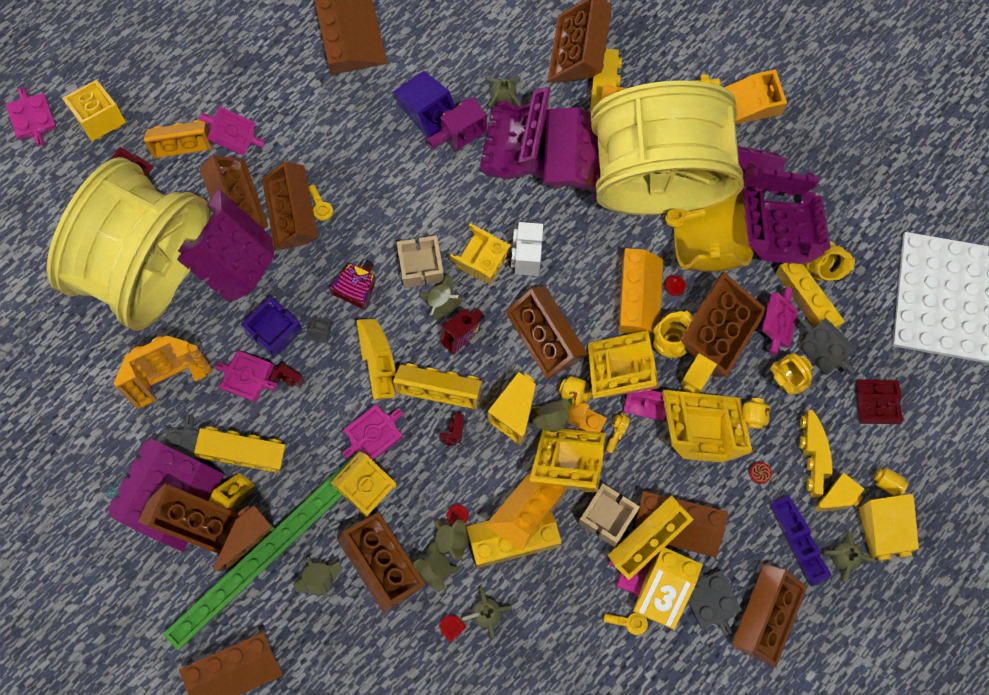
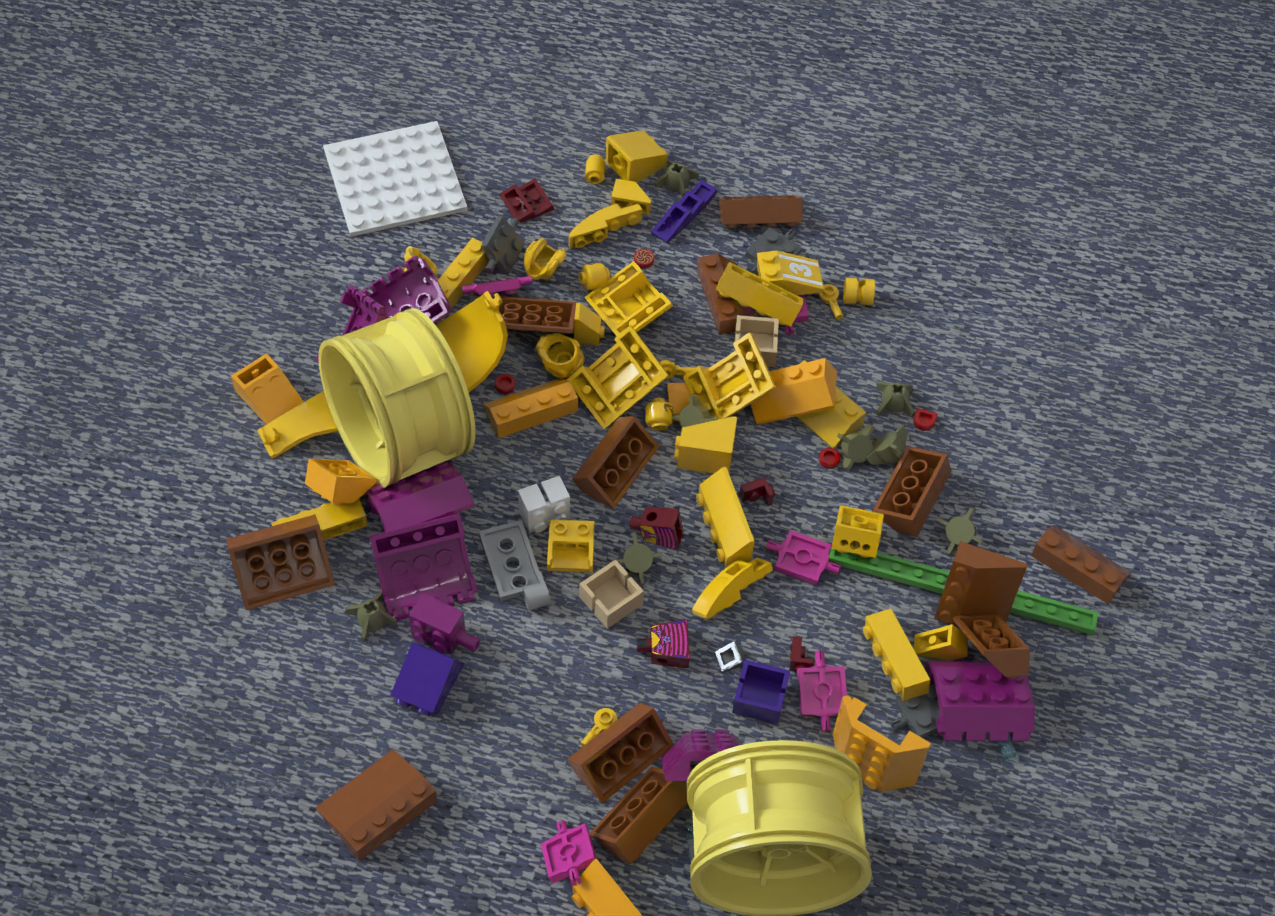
camera: 120 degrees left, 15 degrees down
(456, 209) = (535, 590): none -> light grey hinge
(624, 643) = (859, 291): none -> yellow wheel

